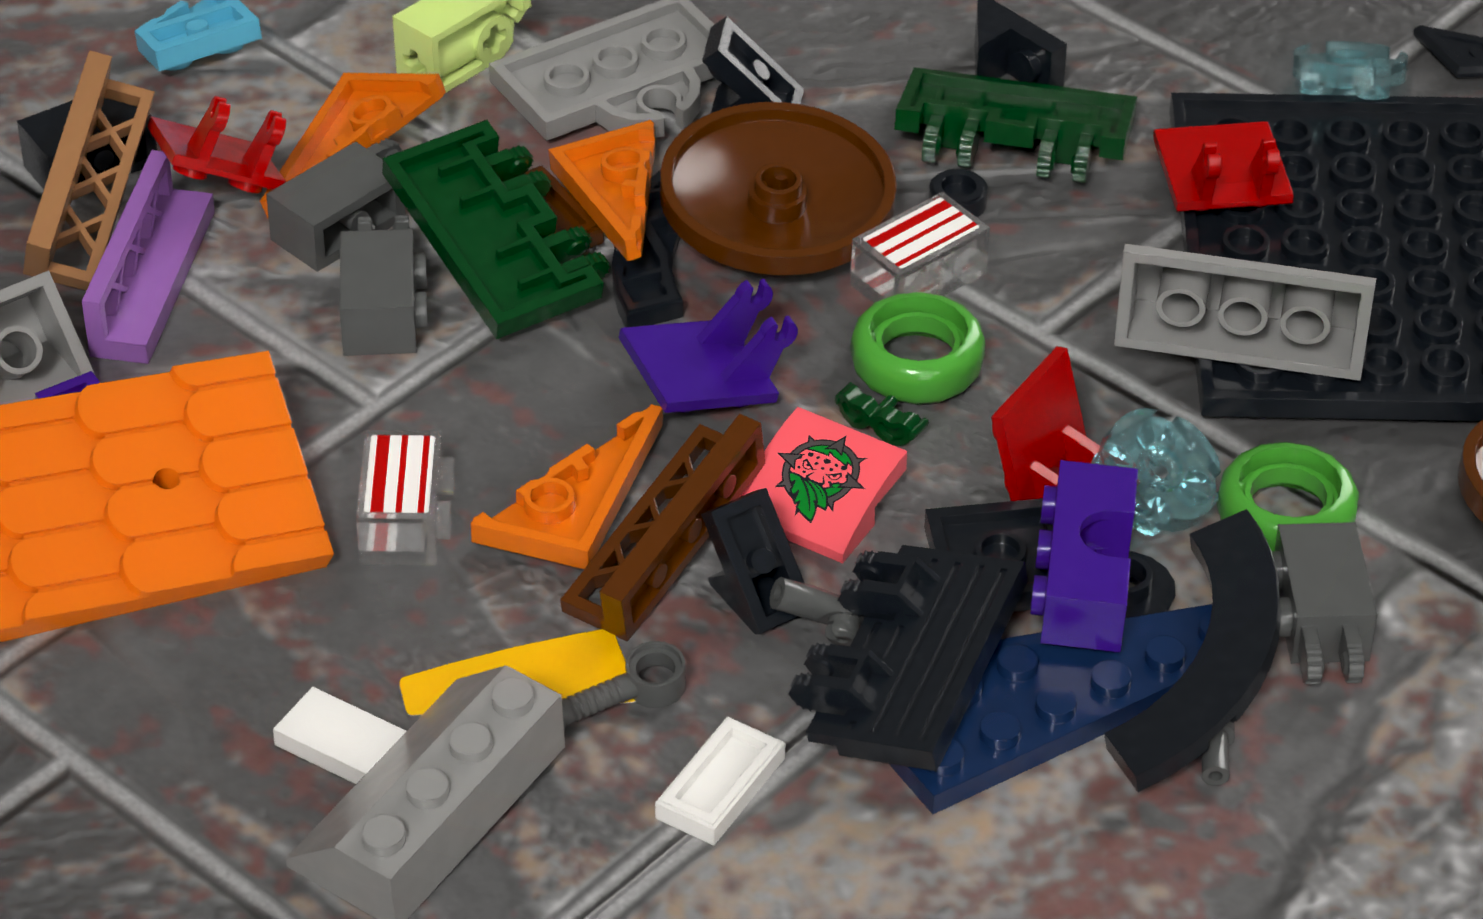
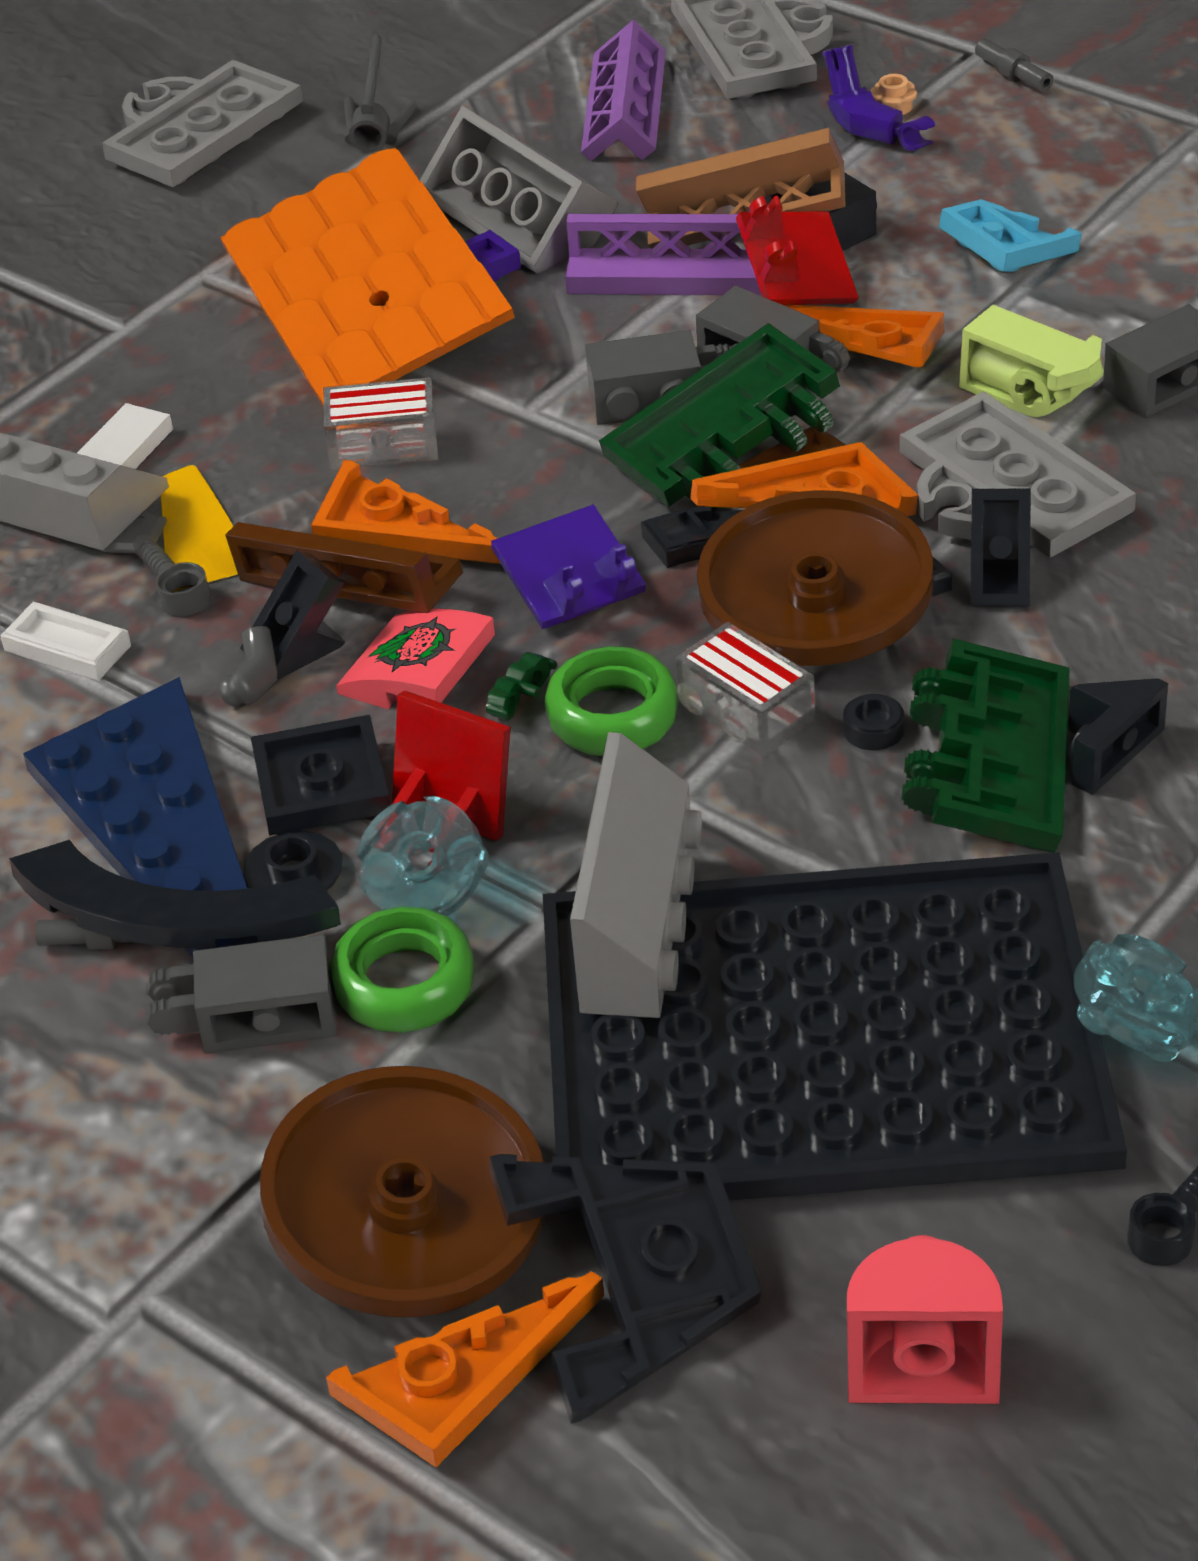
camera: 90 degrees right, 0 degrees up
(915, 656) = (146, 712): black hinge -> none
(1085, 556) = (226, 792): dark purple arch -> none
(1222, 166) = (902, 879): red plate -> none

